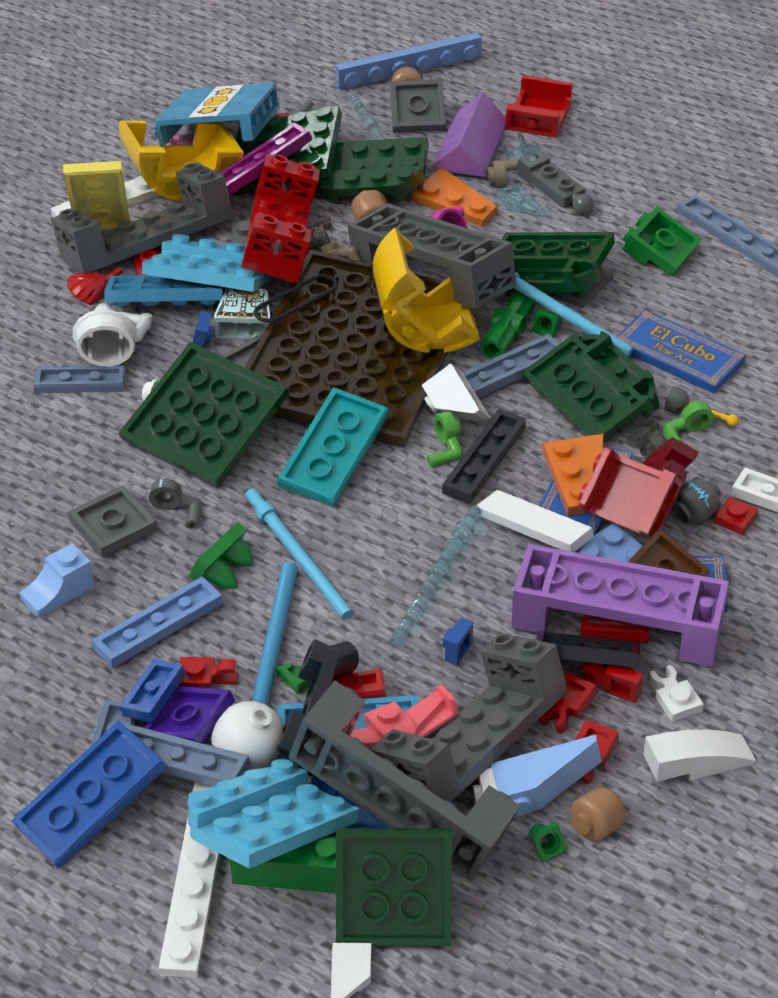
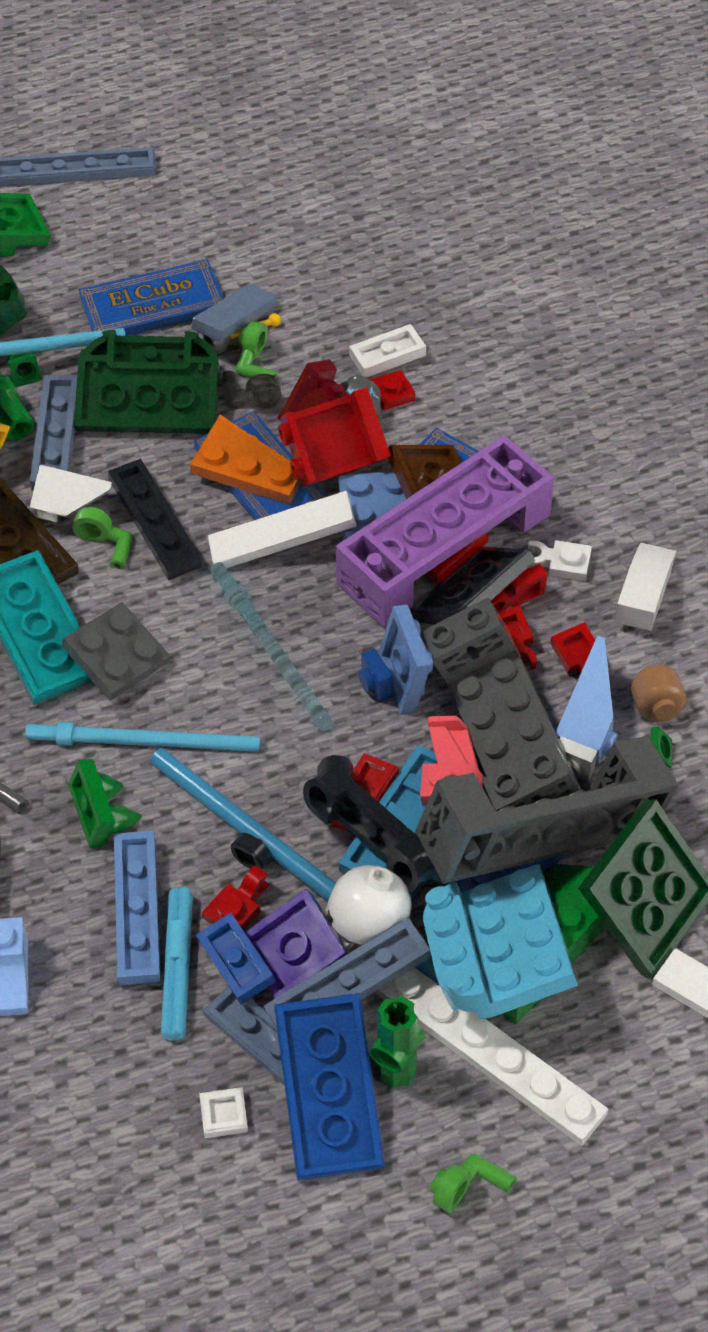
camera: 55 degrees left, 10 degrees up
(36, 755) = (223, 1112): none -> white tile
(65, 908) = (451, 1184): none -> bright green plate
(130, 667) = (177, 964): none -> medium azure axle
(136, 800) = (397, 1042): none -> green piece
(249, 655) = (250, 851): none -> black tile
(289, 674) = (304, 829): green tile -> none
(351, 496) = (115, 651): none -> dark grey plate
(467, 652) = (405, 658): none -> medium blue plate
(713, 392) = (234, 312): none -> sand blue tile

